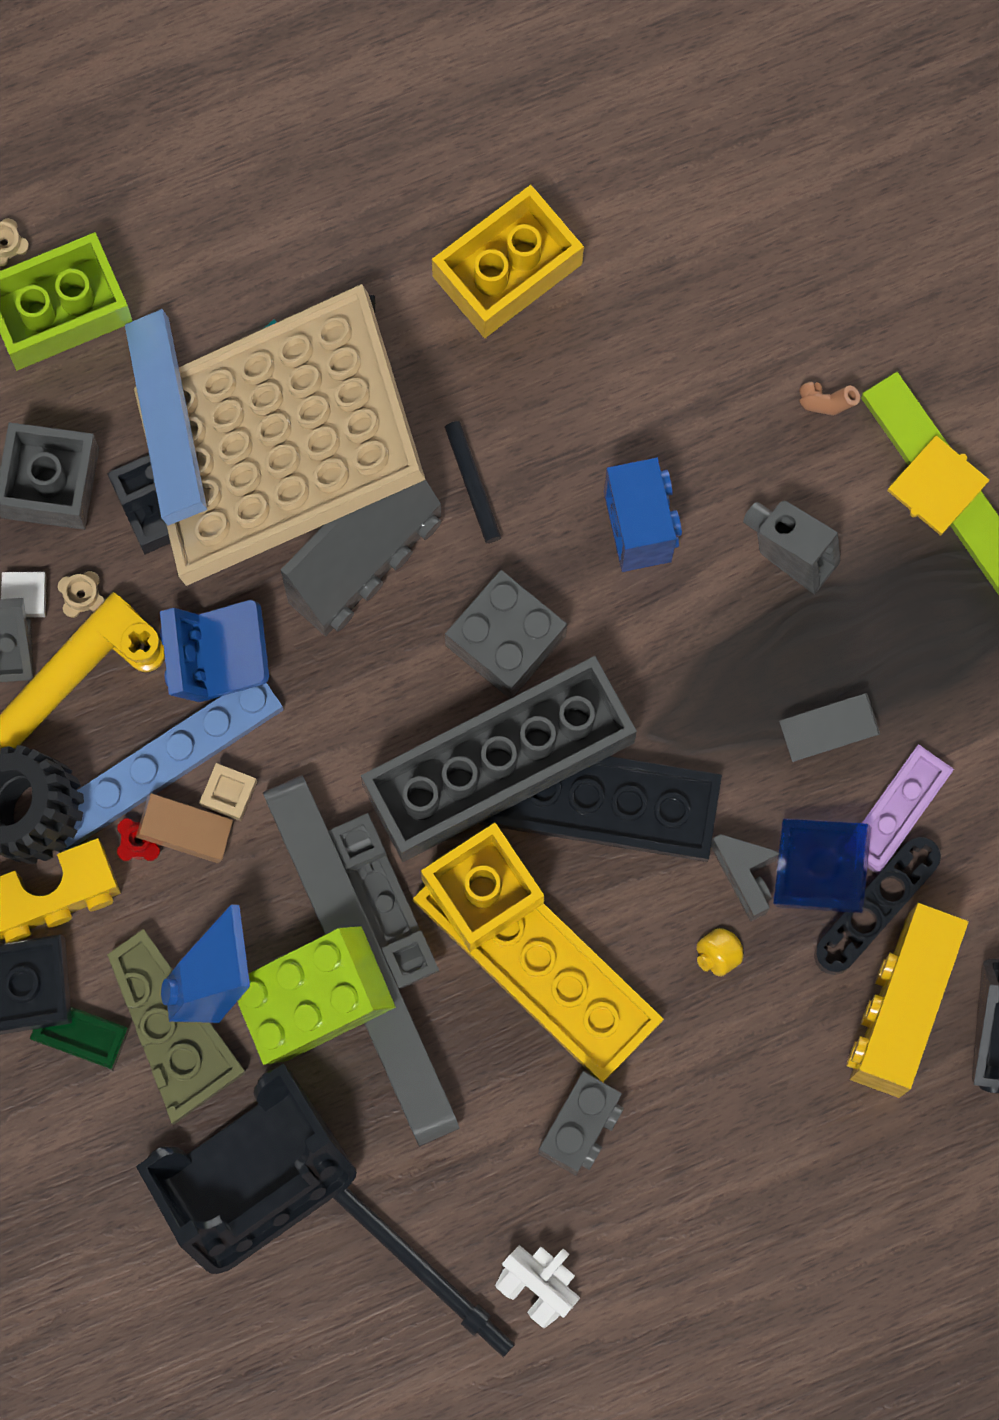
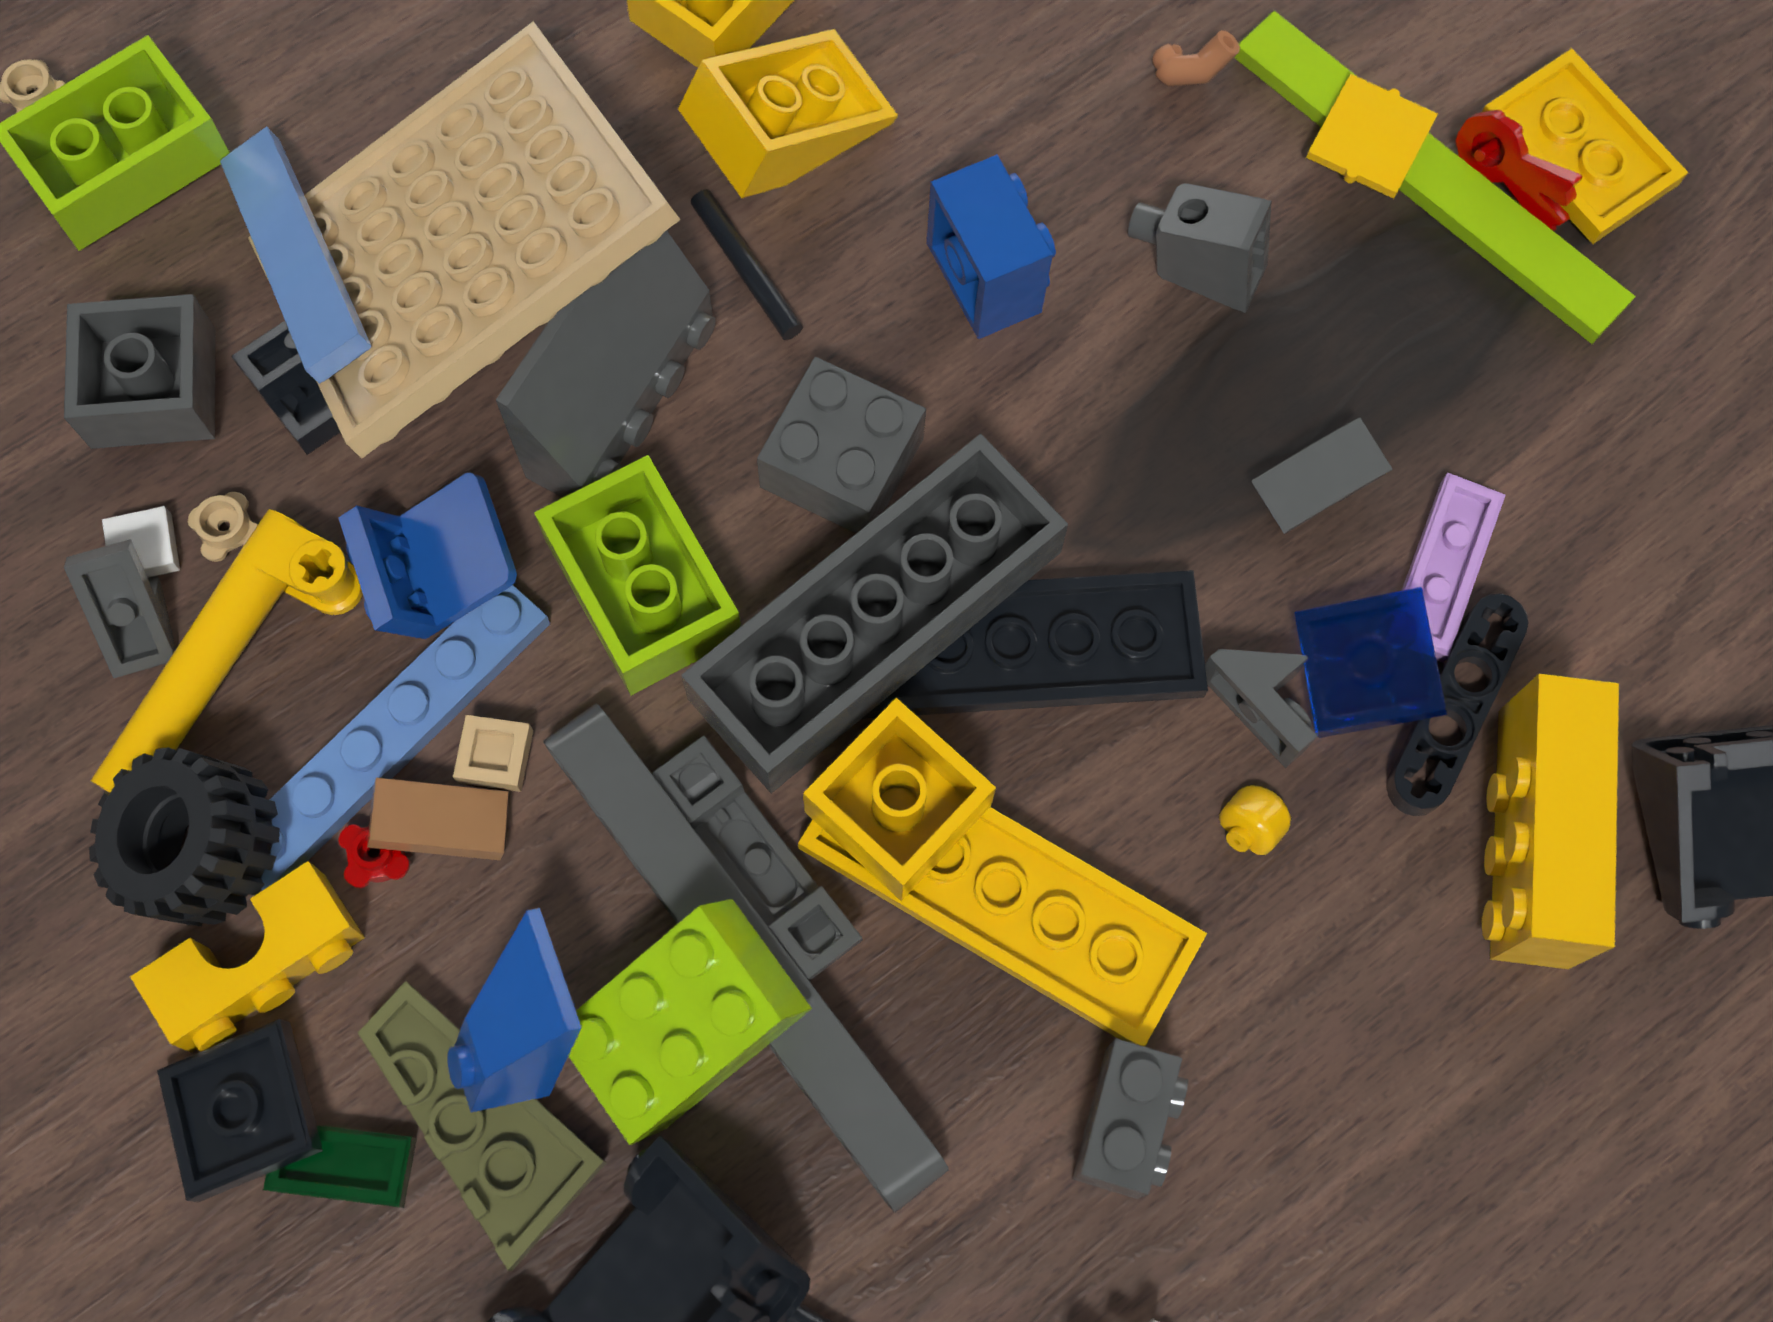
camera: 15 degrees left, 5 degrees down
(349, 694) = (639, 574): none -> lime brick
(526, 373) = (783, 109): none -> yellow slope

